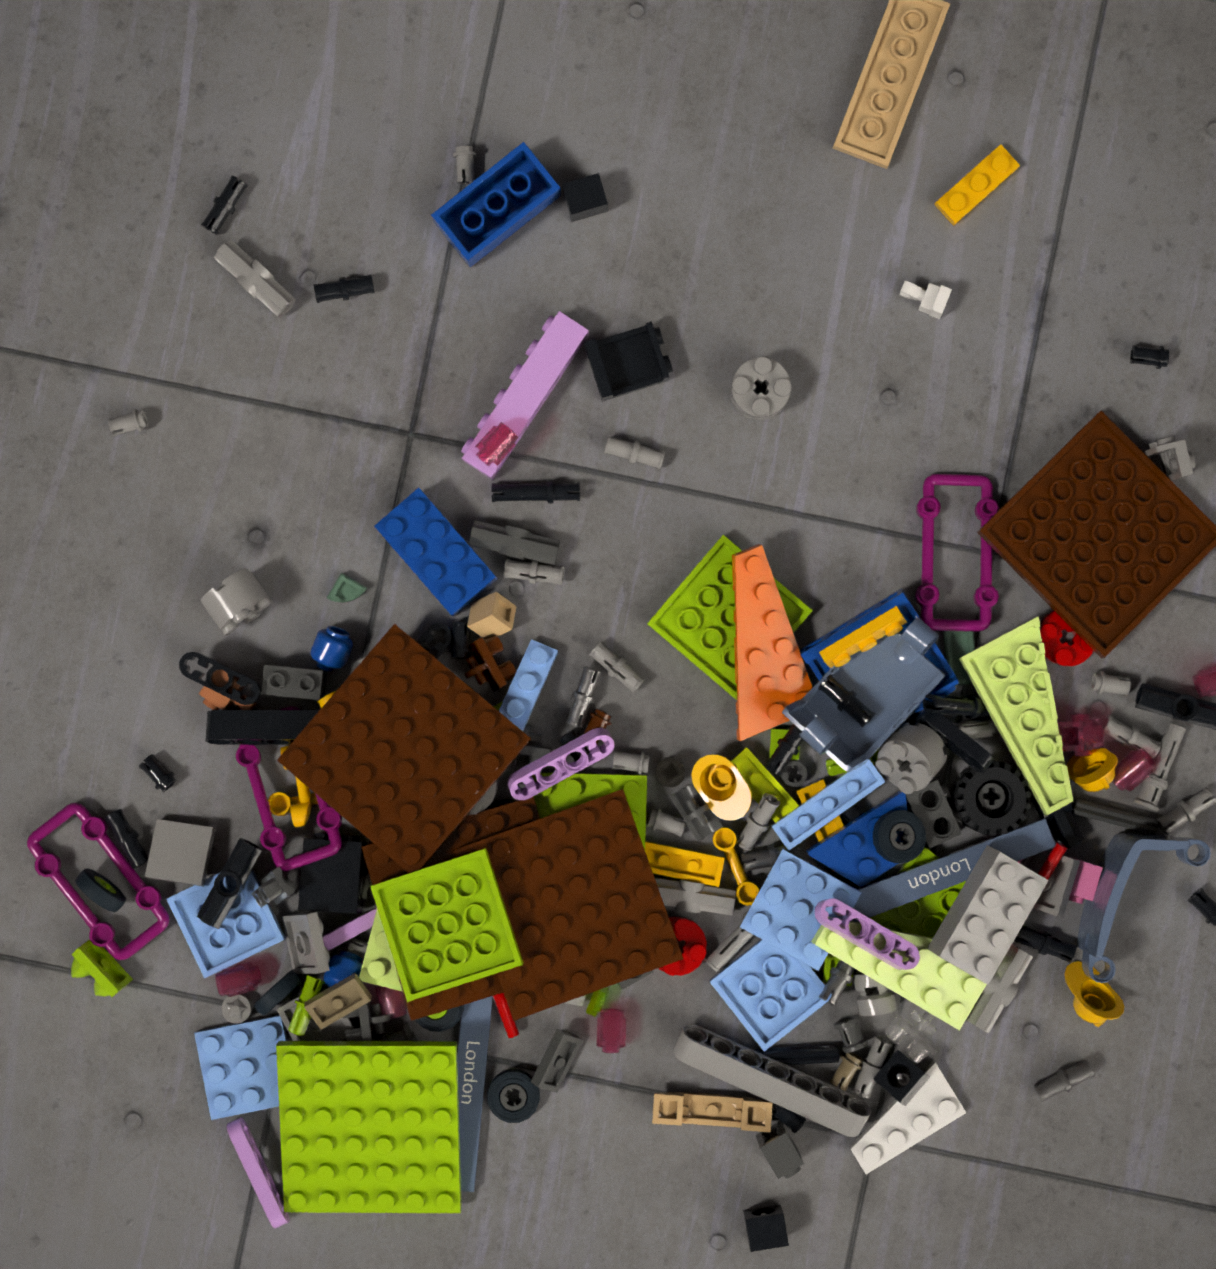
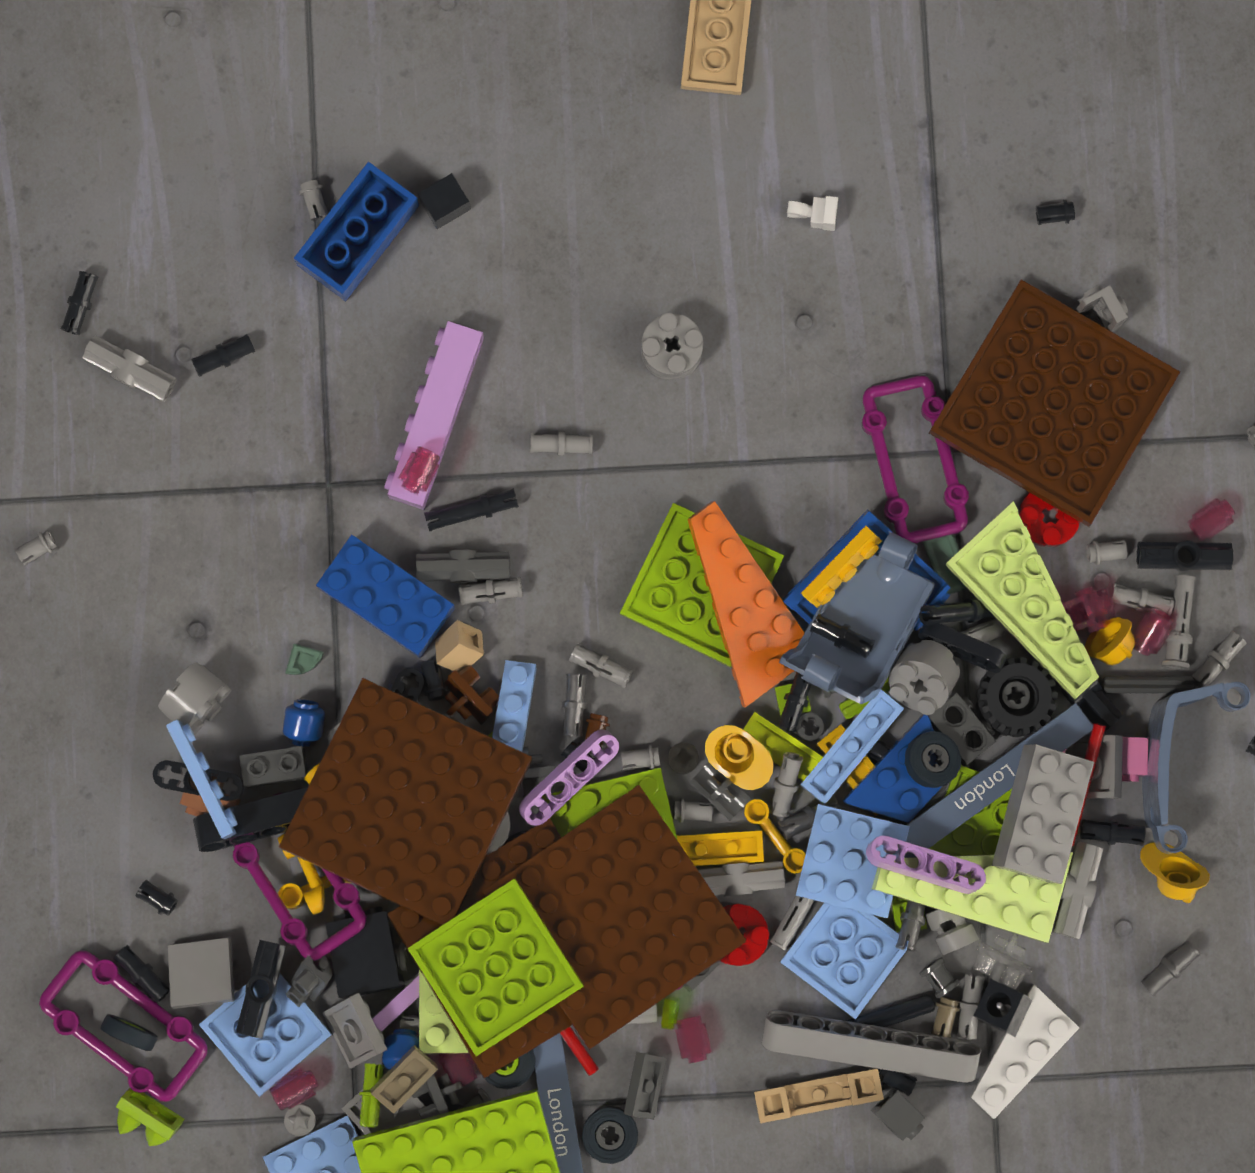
camera: 20 degrees left, 5 degrees down
(220, 666) = (209, 790): none -> light blue plate
(277, 992) = (339, 1090): black bush -> none
(628, 361) = (531, 354): black panel -> none
(977, 185) = (835, 88): yellow plate -> none

